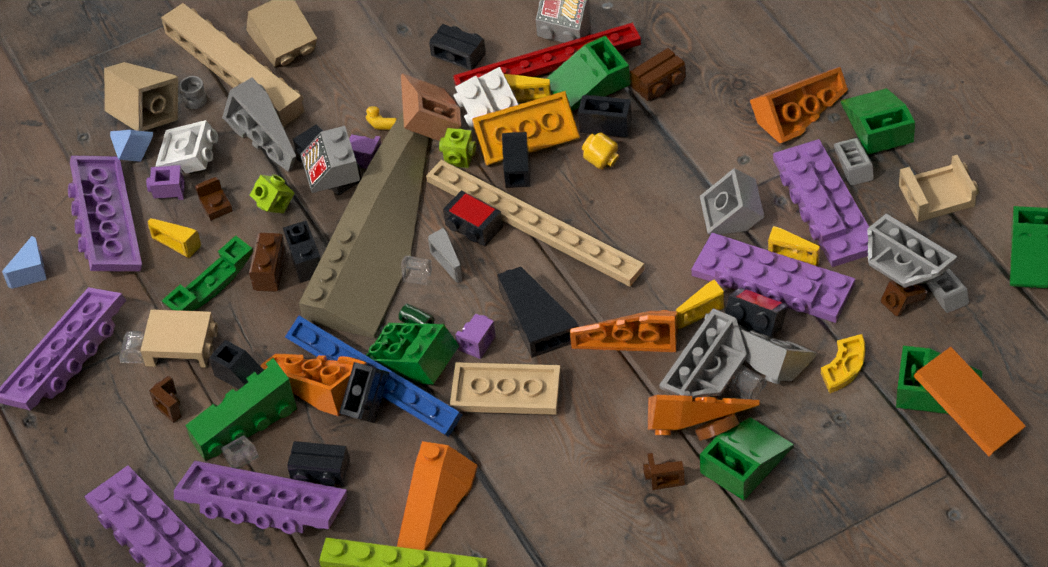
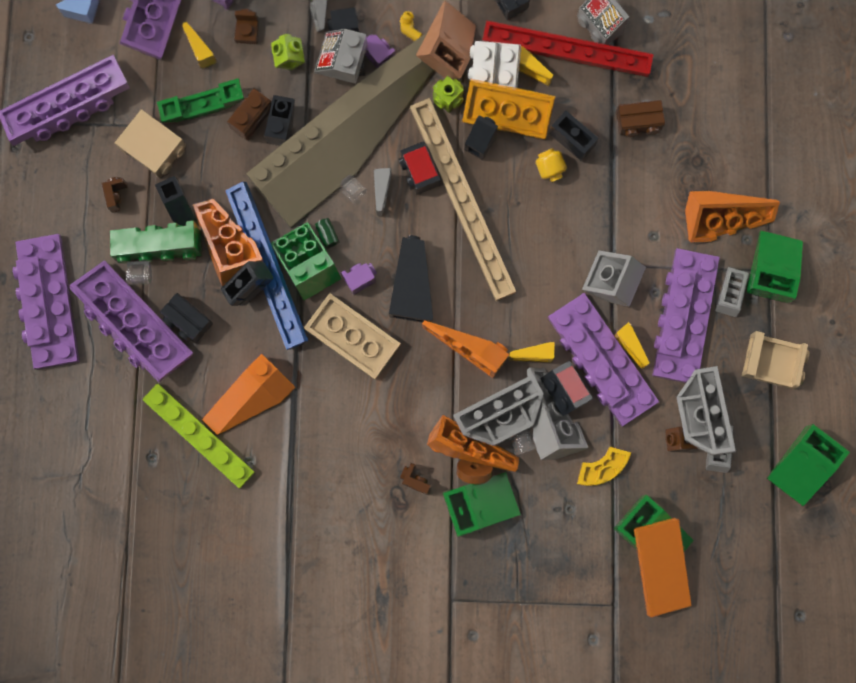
camera: 25 degrees right, 30 degrees up
(131, 347) = (115, 129): clear brick -> none
(592, 71) = (586, 86): green slope -> none

